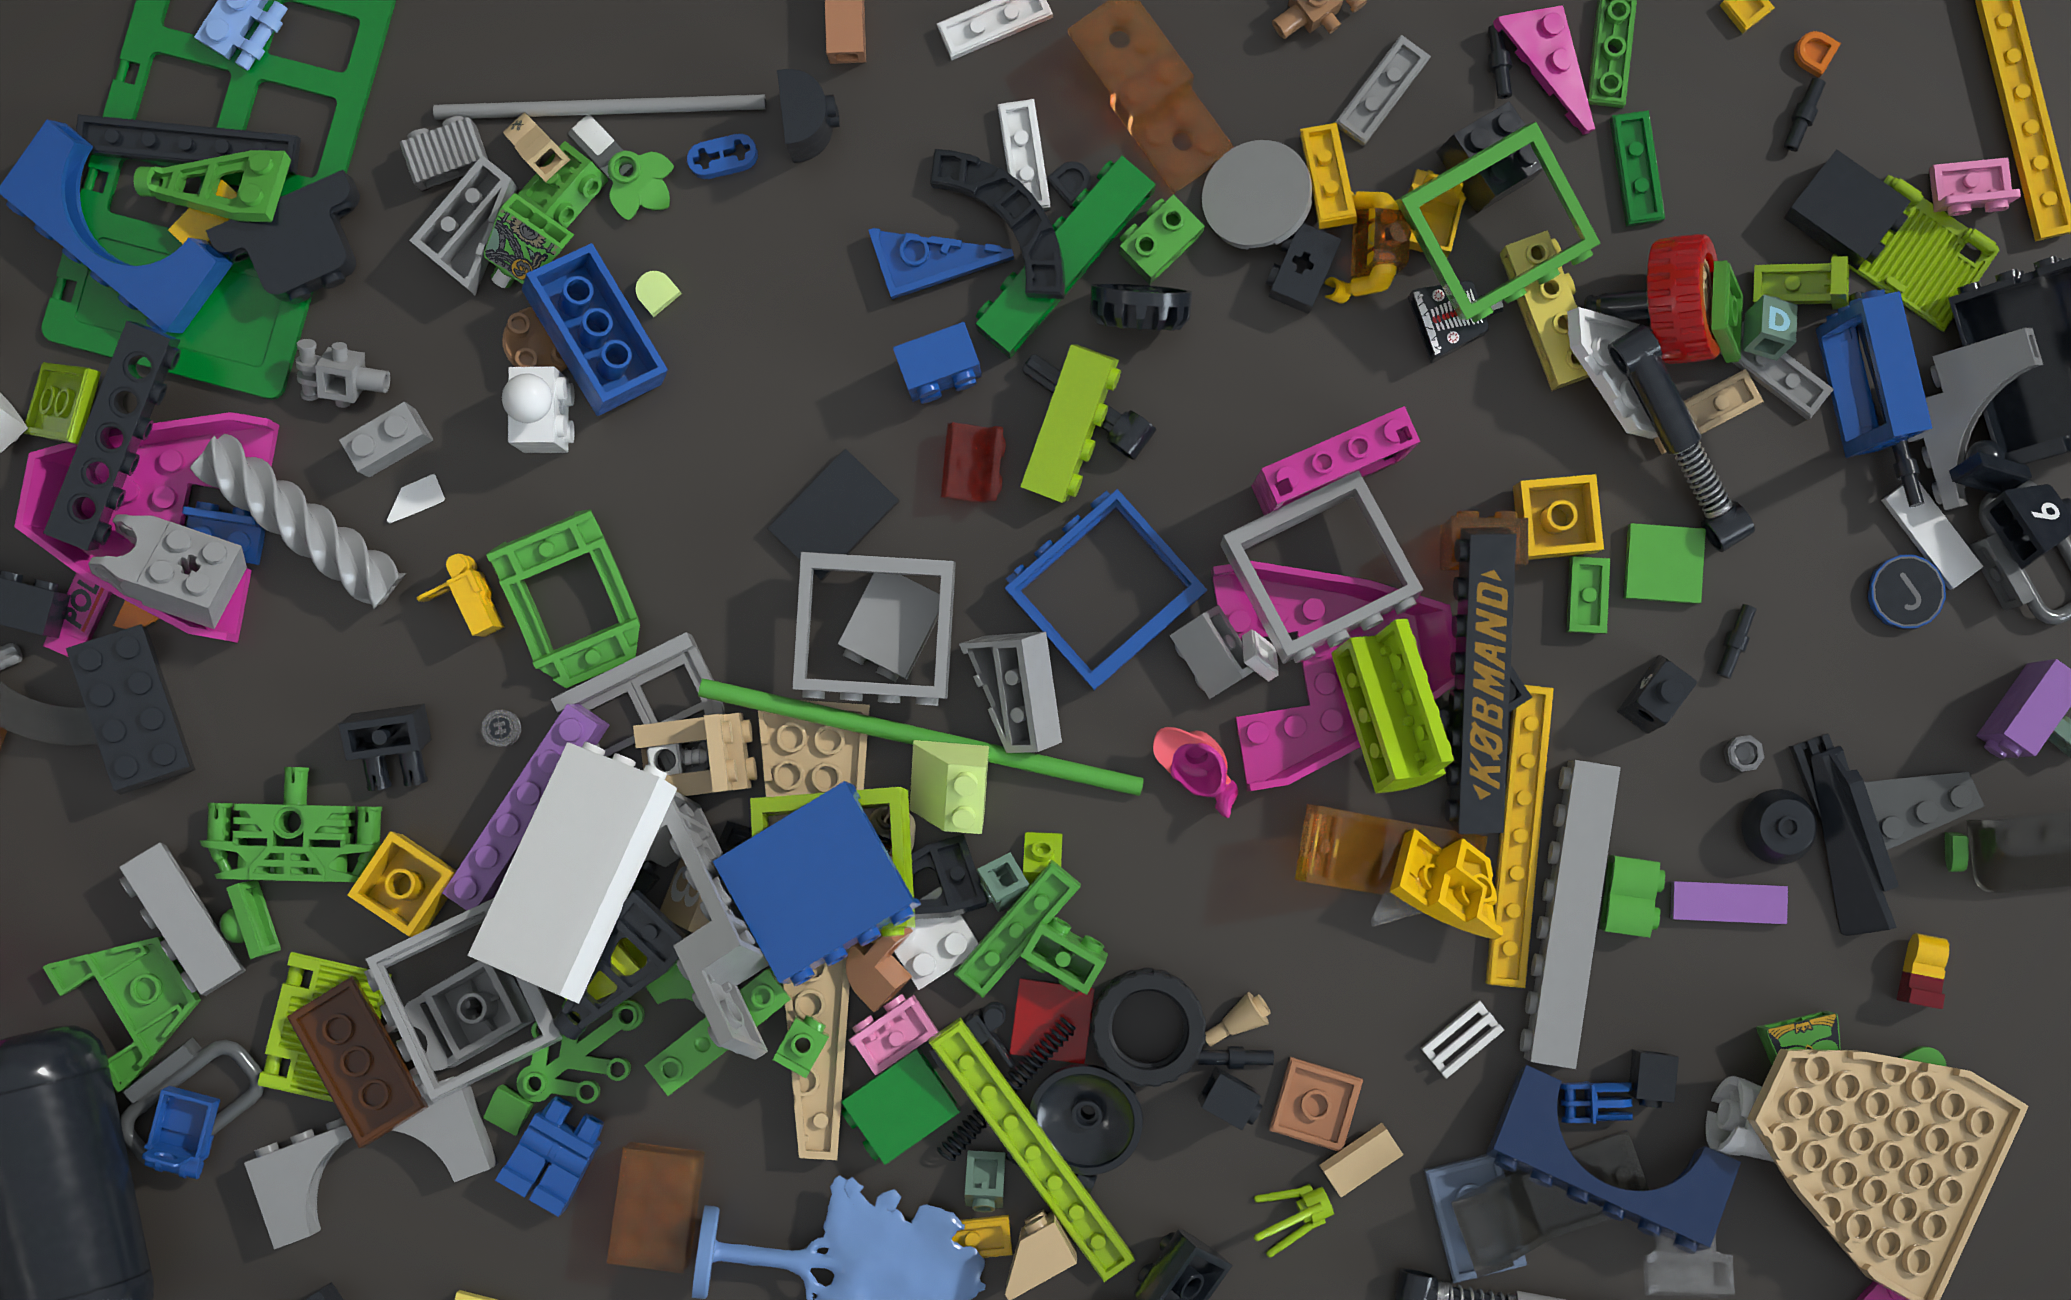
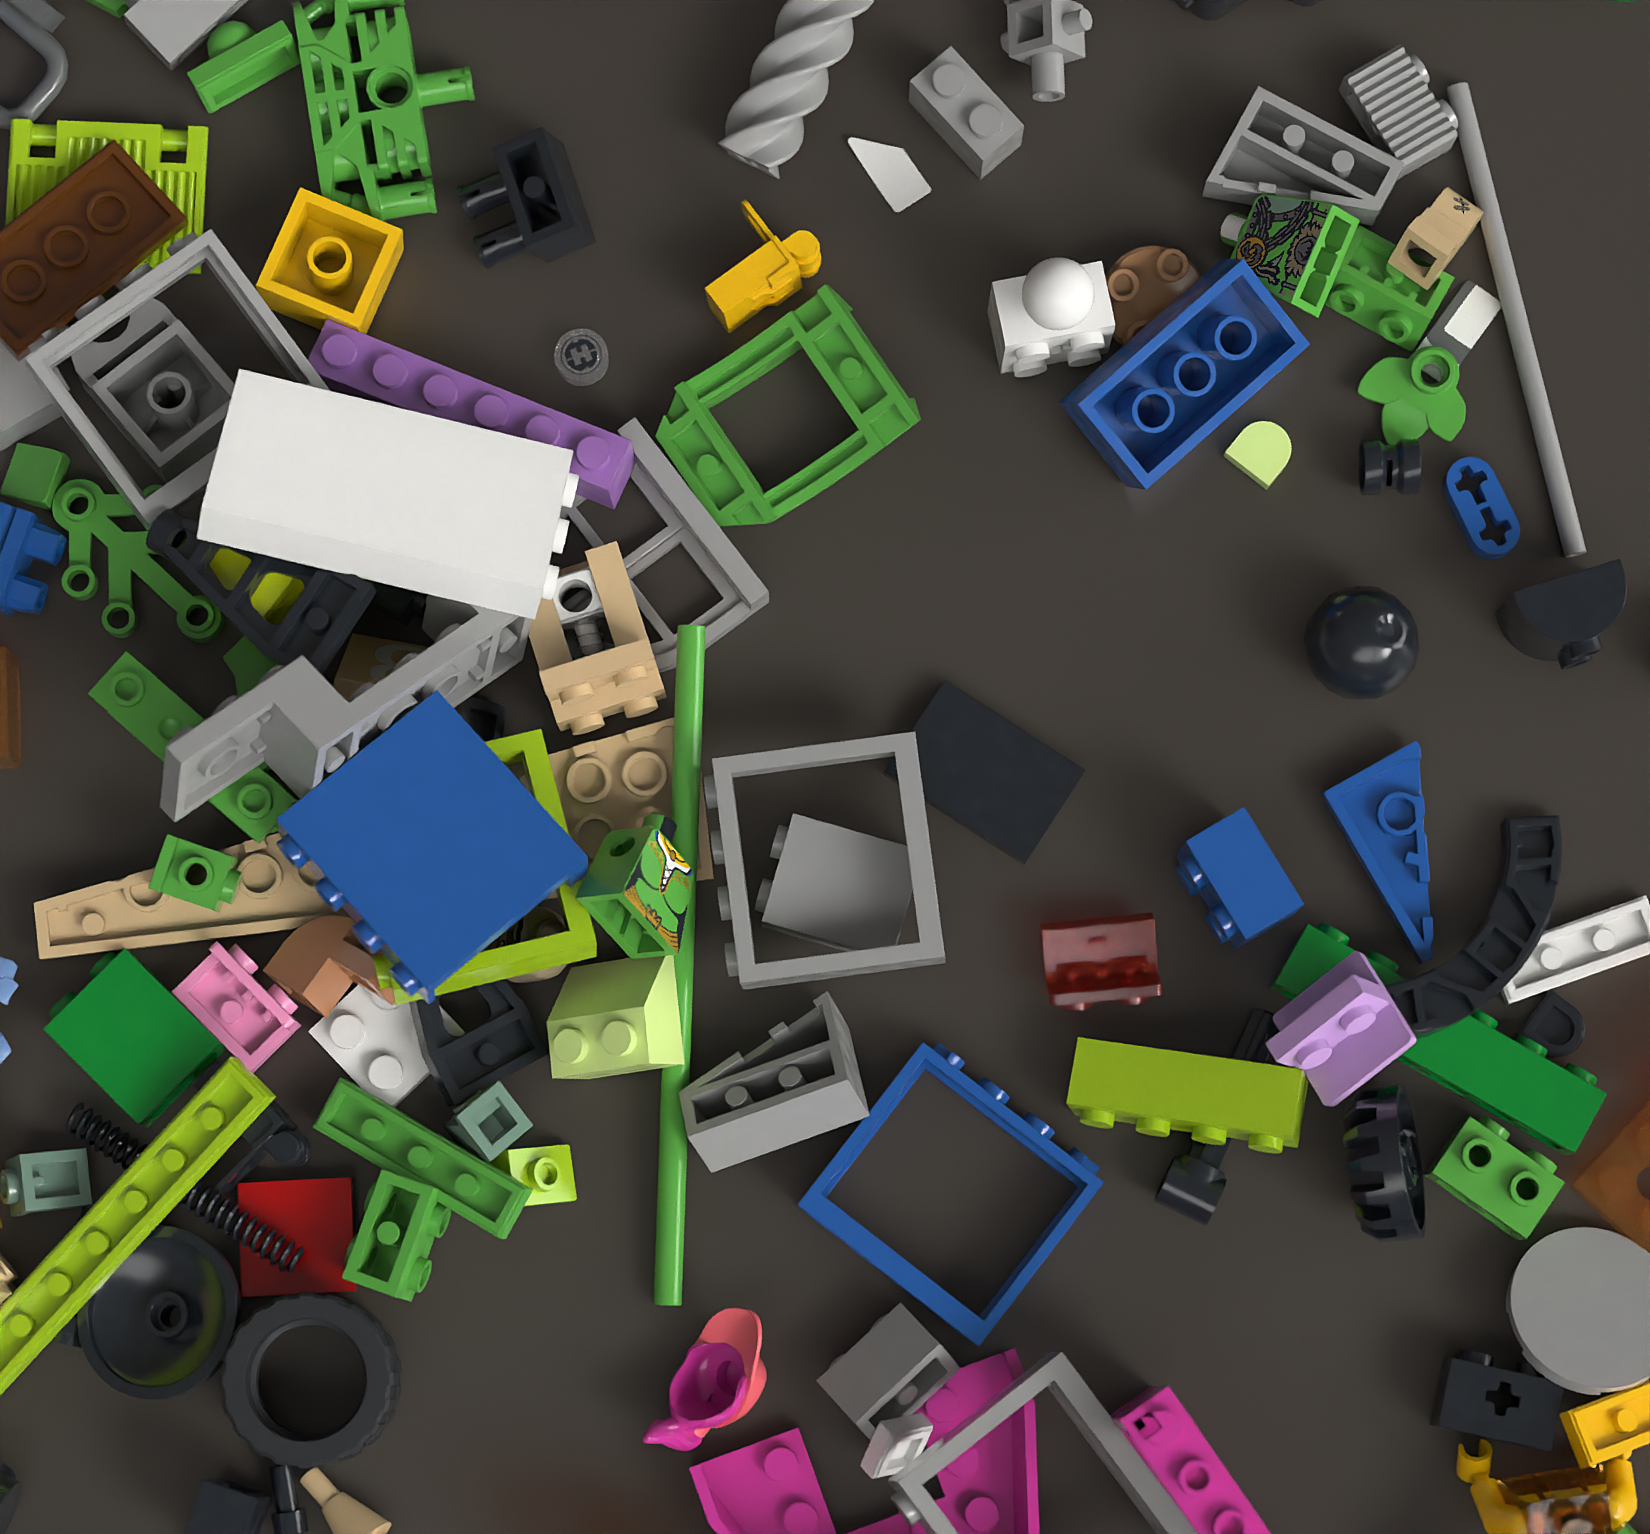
camera: 70 degrees right, 5 degrees down
(683, 209) = (1389, 466): none -> black wheel
(797, 251) = (1361, 642): none -> black piece
(869, 752) = (640, 888): none -> bright green torso
(1049, 314) = (1341, 1030): none -> lavender bracket

